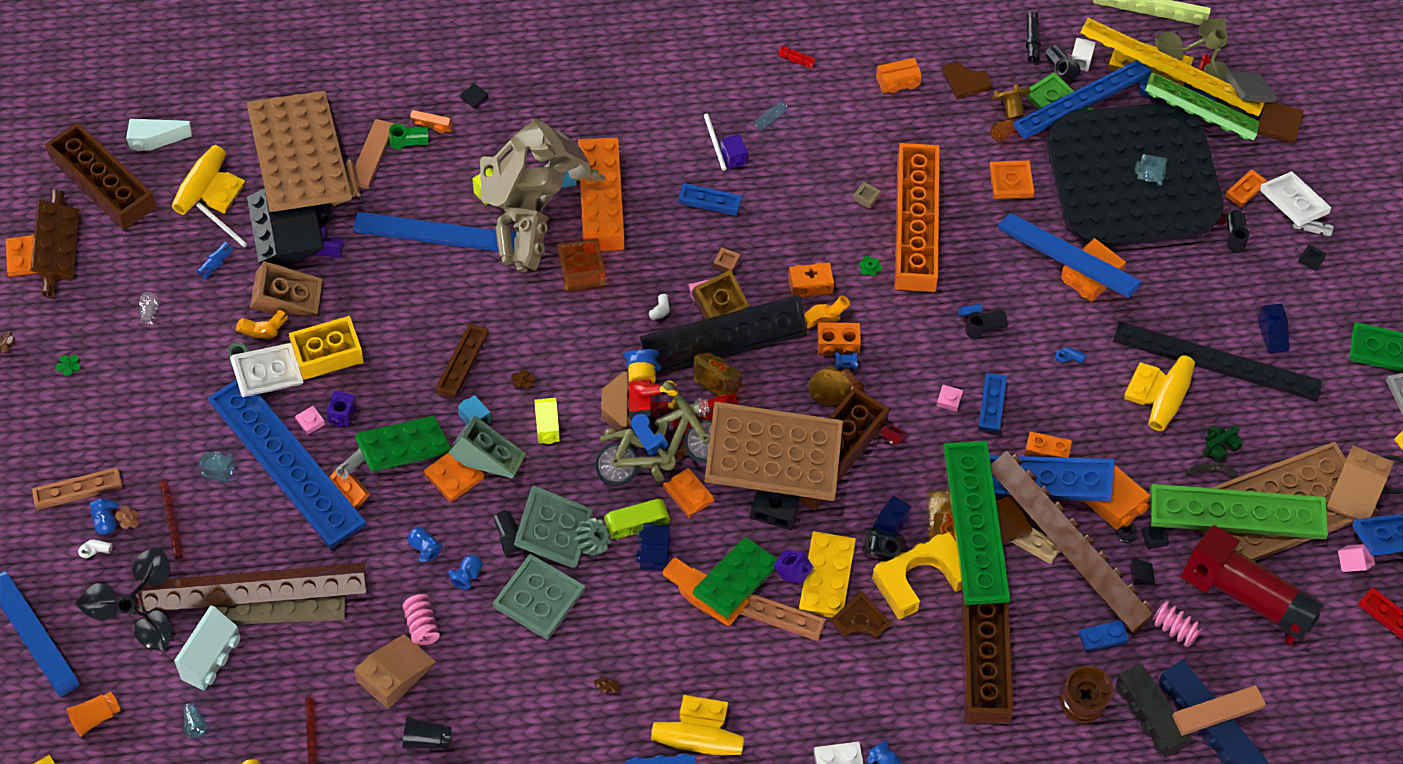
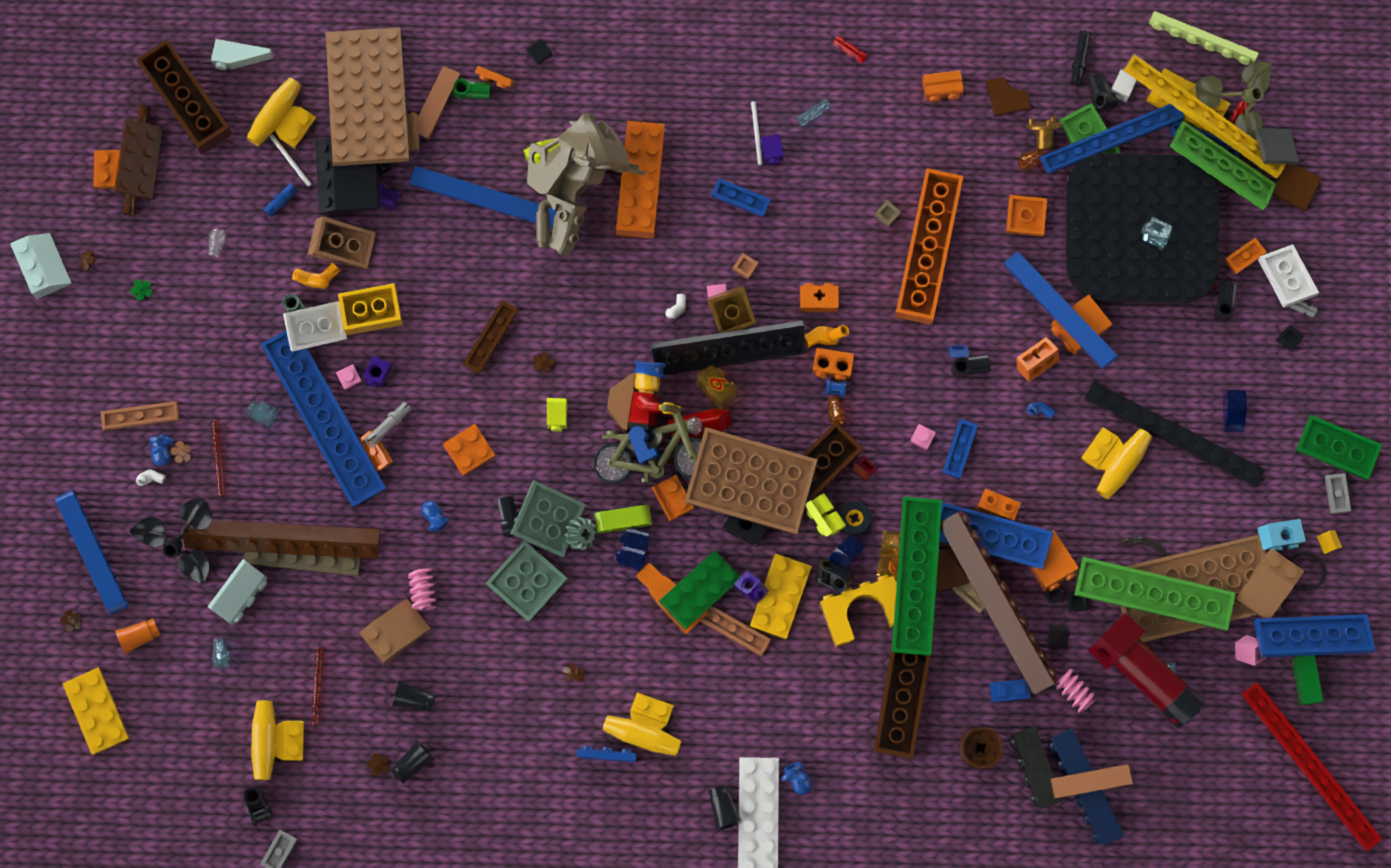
camera: 10 degrees right, 20 degrees up
(13, 709) = (71, 621): none -> reddish brown plant
(402, 443) = (427, 416): green plate -> none
(468, 571) = (469, 548): blue animal -> none
(472, 407) = (494, 394): dark azure brick -> none
(486, 450) = (499, 435): sand green slope -> none
(581, 265) = (610, 254): clear orange brick -> none
(829, 386) = (815, 413): pearl gold piece -> none
(860, 616) = (801, 642): reddish brown tile -> none
(865, 484) = (819, 511): none -> neon yellow plate
(870, 266) = (872, 291): green plant -> none
(886, 478) = (864, 516): none -> black bush
(1055, 305) = (1037, 359): none -> orange brick
(1218, 439) = (1166, 517): dark green hips -> none
(1361, 434) = (1290, 530): none -> medium azure brick

